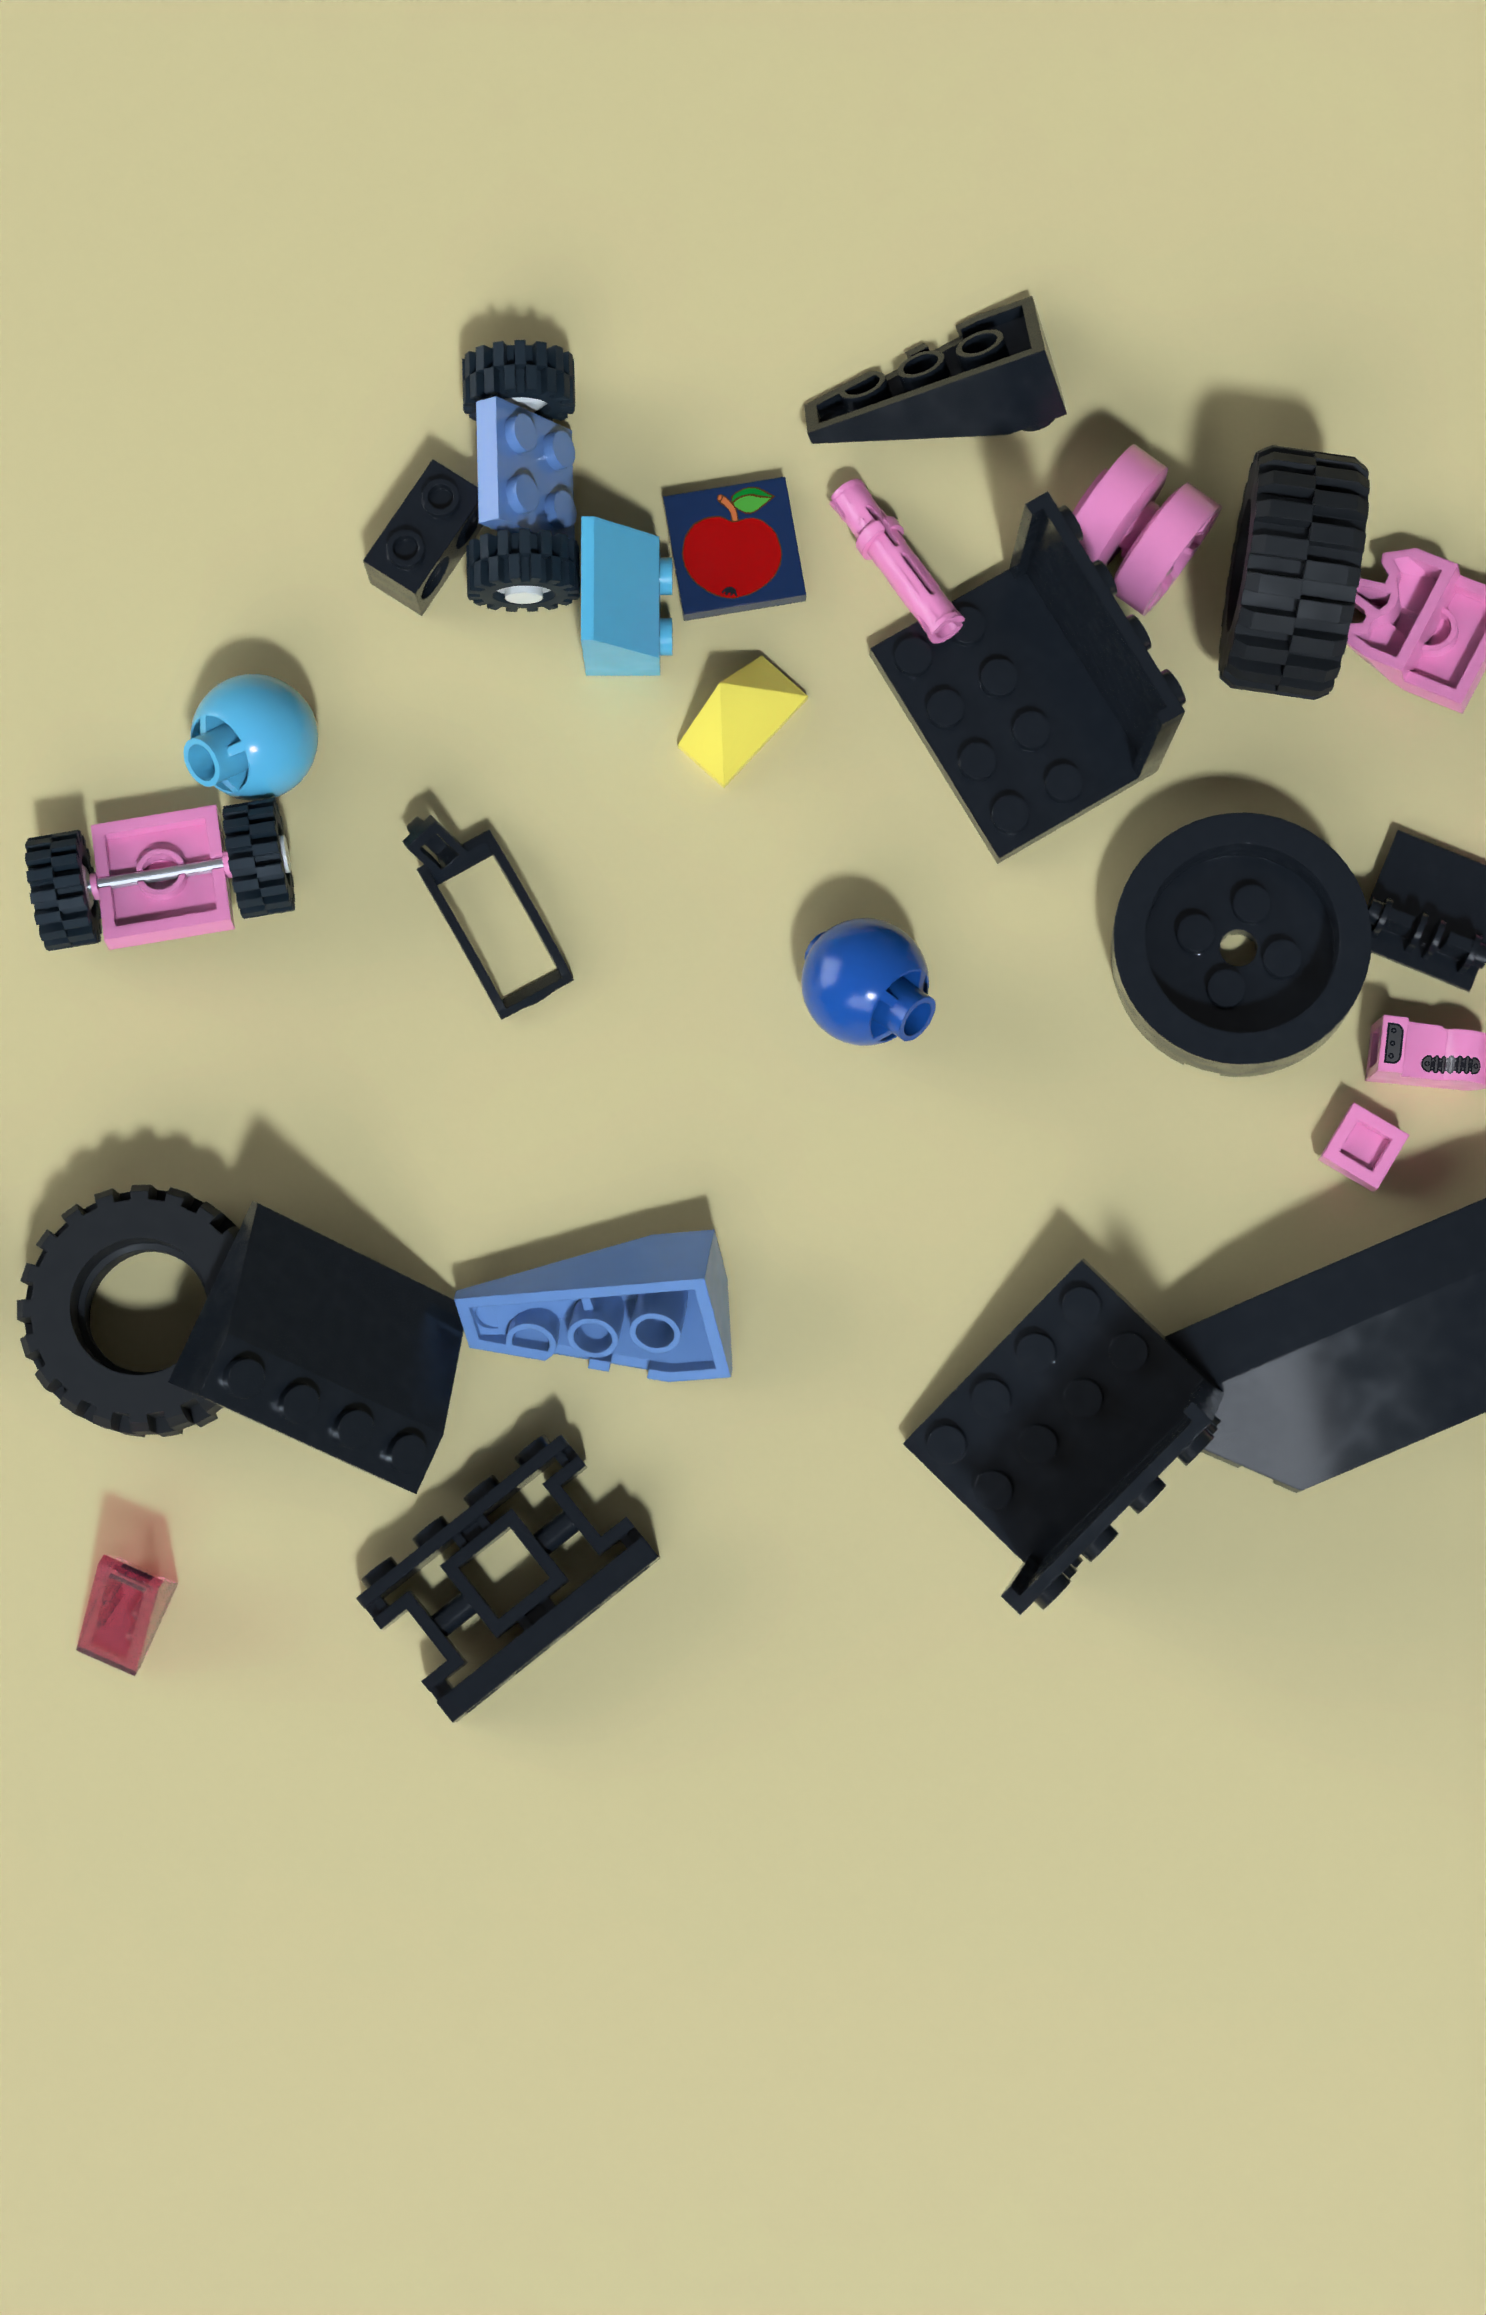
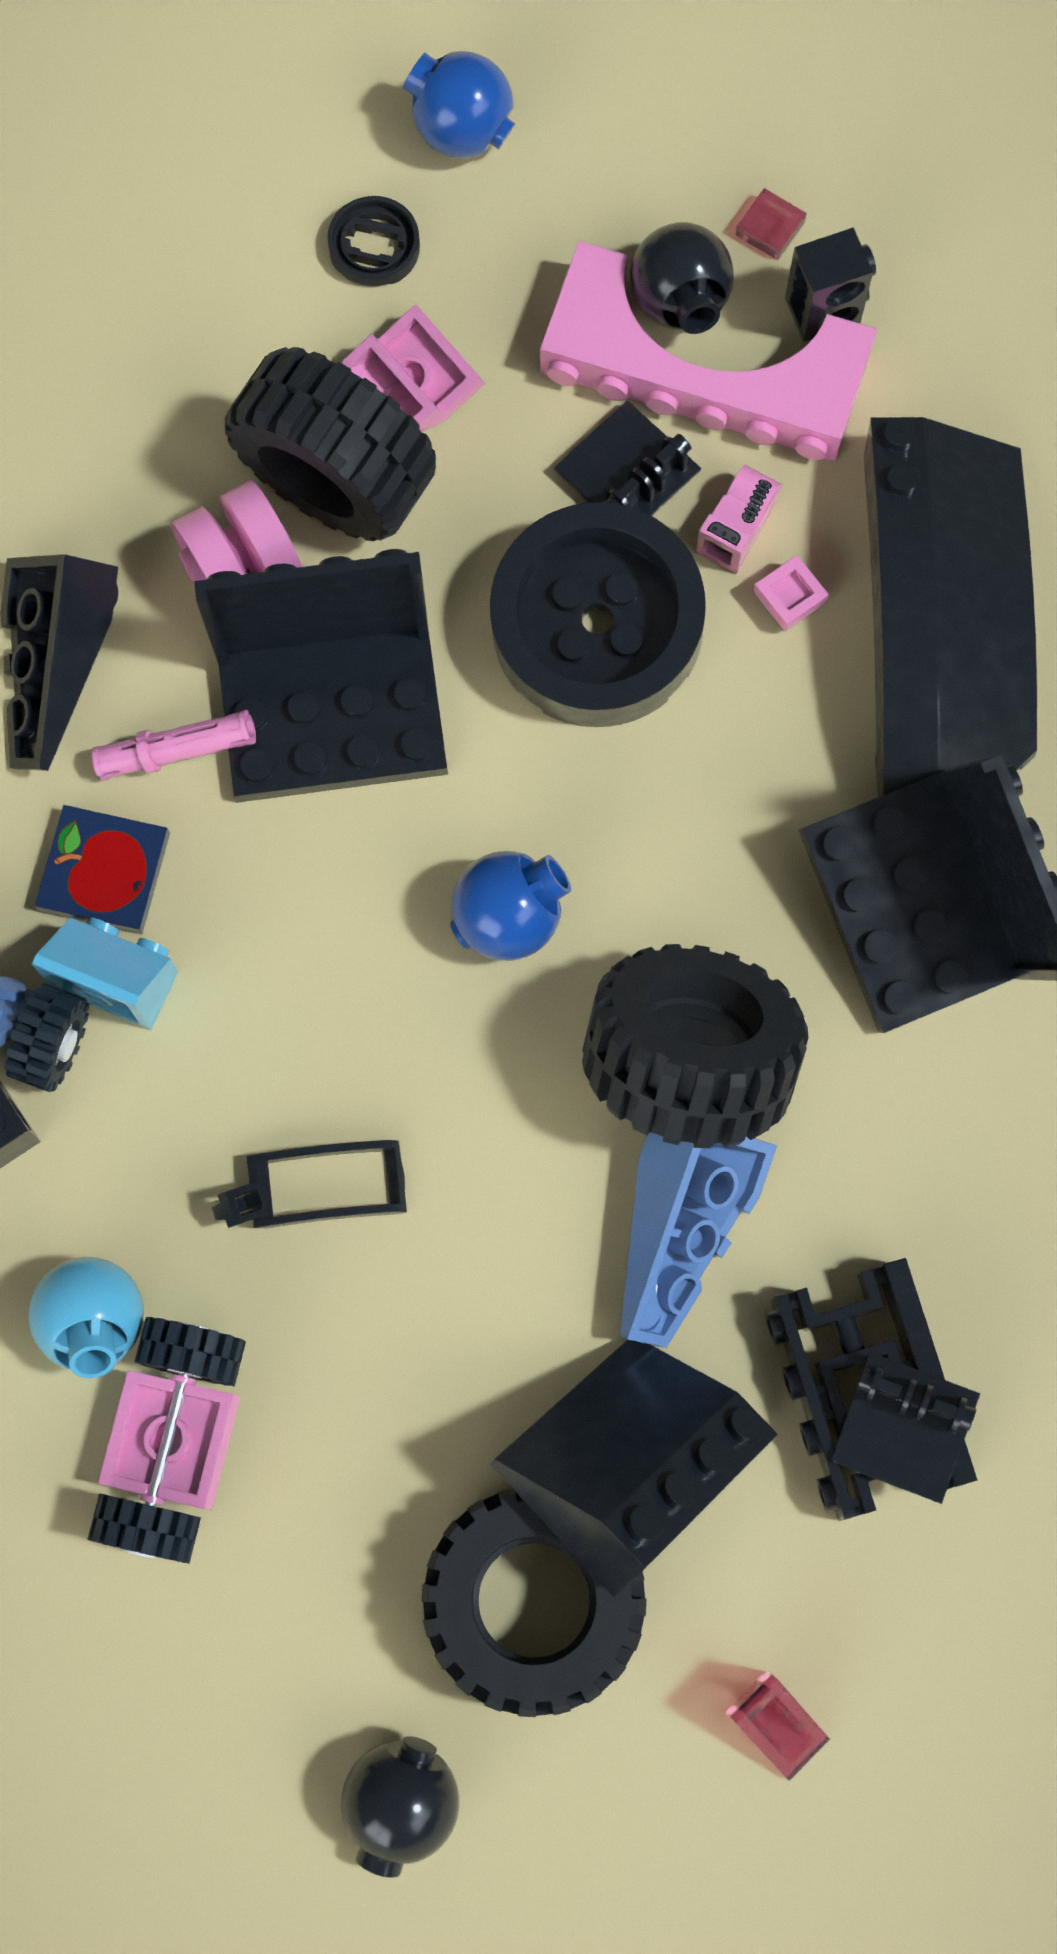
camera: 65 degrees left, 5 degrees down
(475, 1623) = (906, 1427): none -> black hinge
(727, 1251) = (694, 1045): none -> black tyre
(740, 719) = (246, 921): light yellow slope -> none

